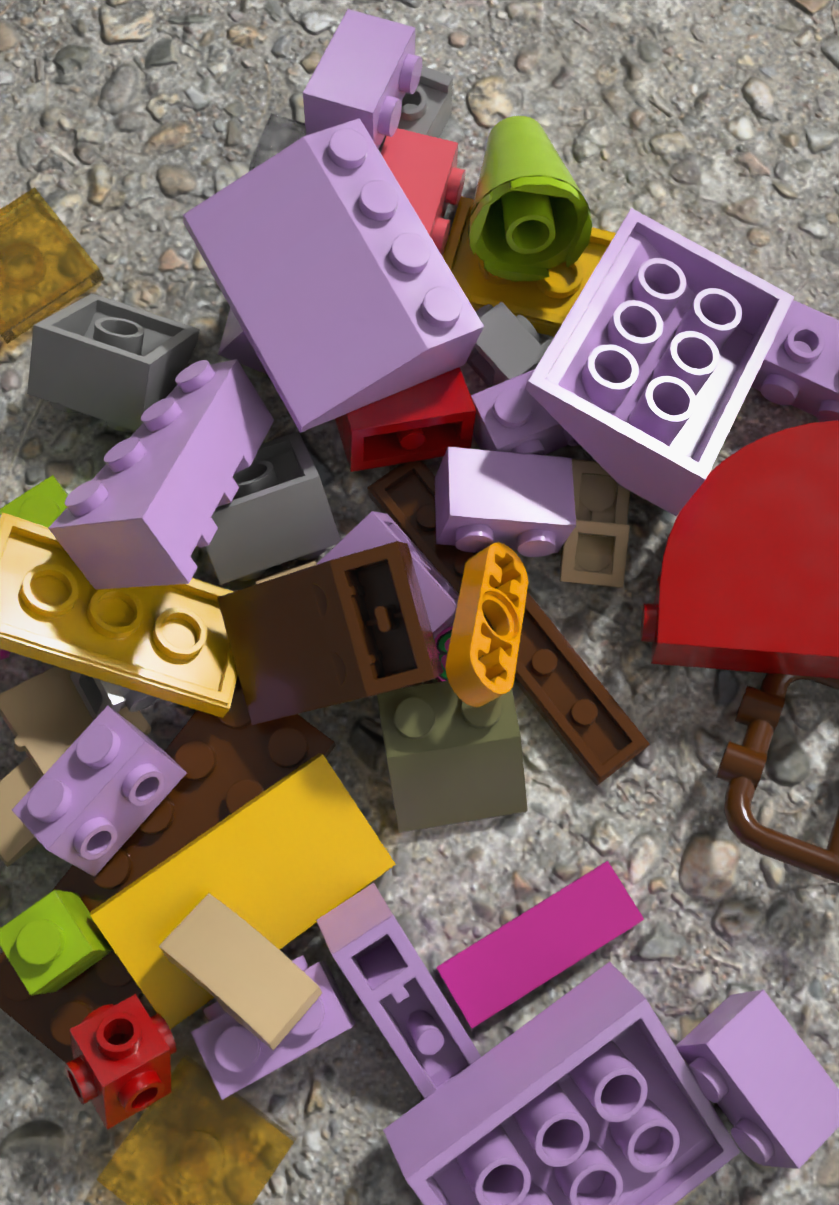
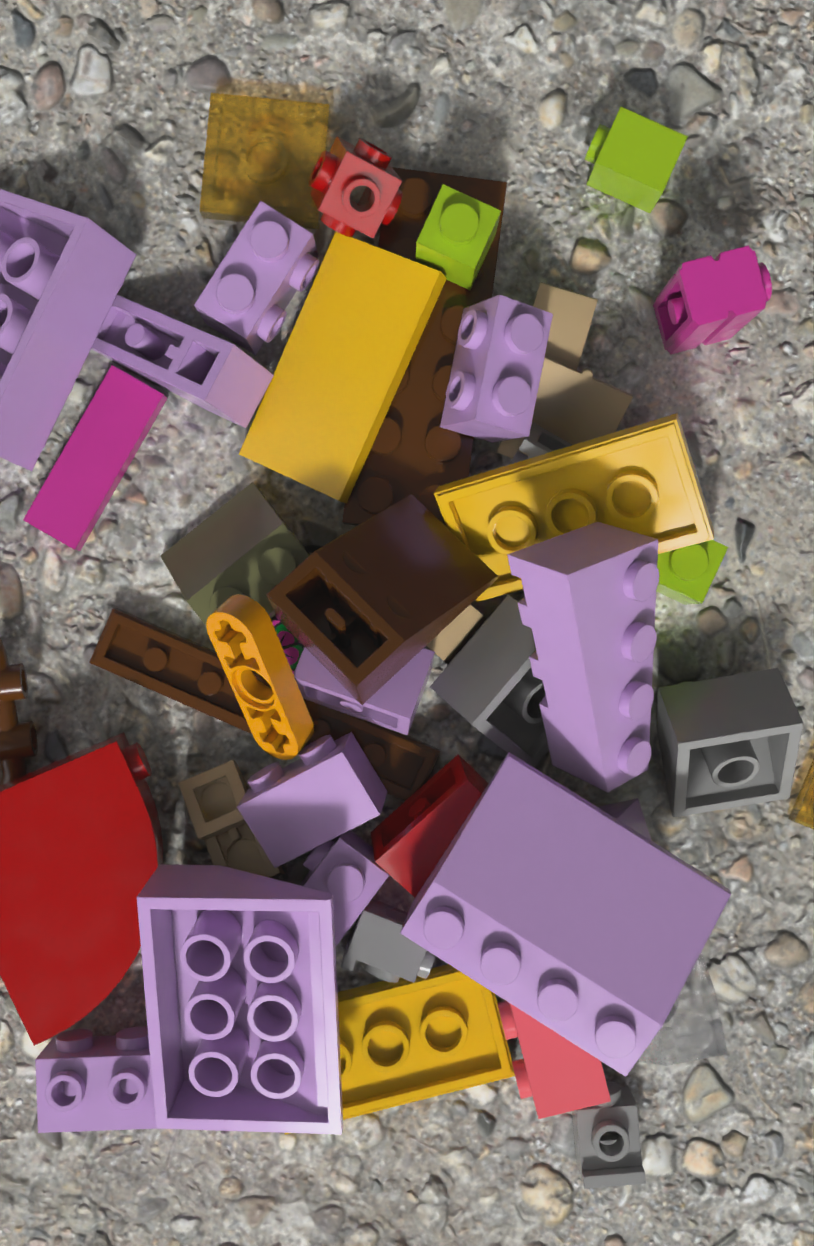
camera: 150 degrees right, 15 degrees up
(241, 970) = (298, 295): tan slope -> none
(363, 76) = (656, 1129): lavender brick -> none
(526, 205) = (445, 1094): lime cone -> none

